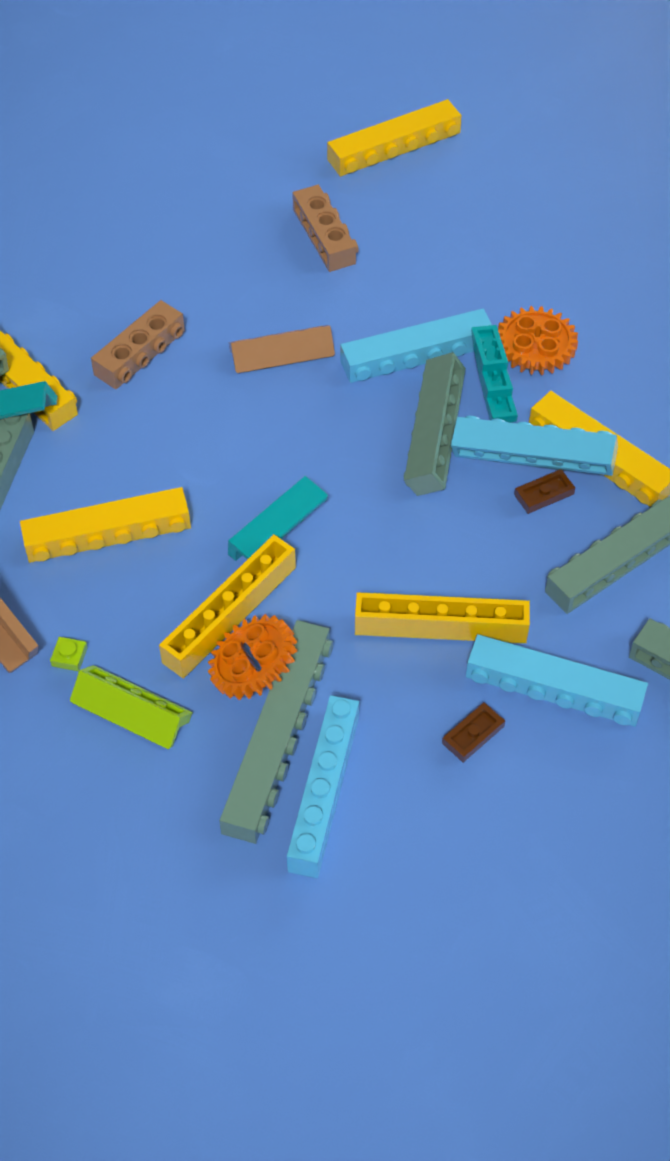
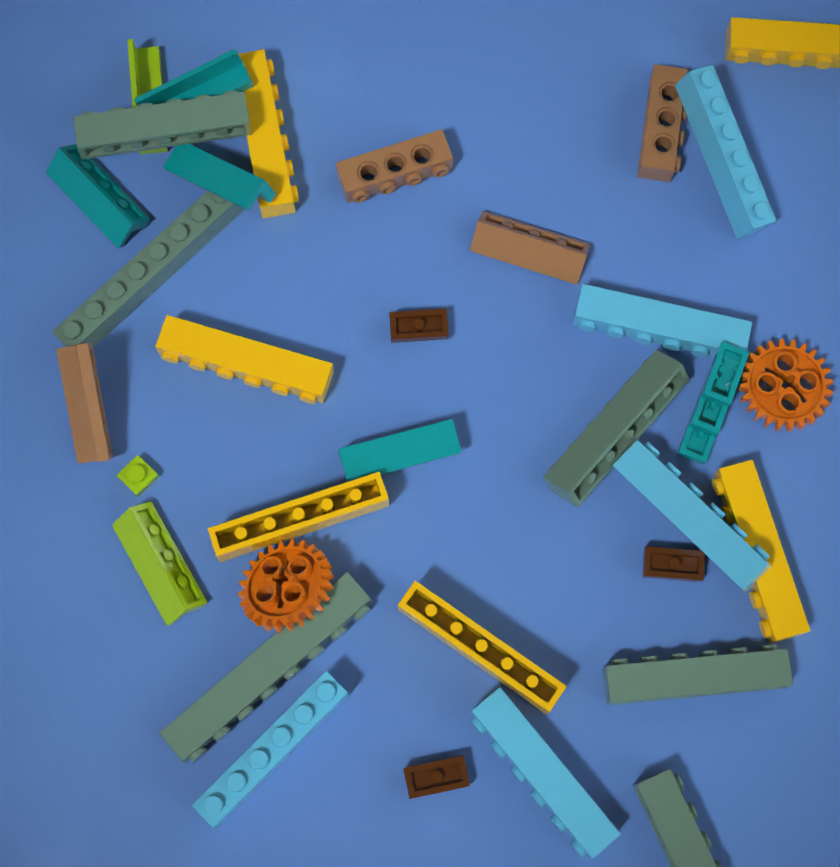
camera: 30 degrees right, 20 degrees up
(232, 436) = (418, 325): none -> reddish brown plate
(384, 218) = (725, 152): none -> medium azure brick

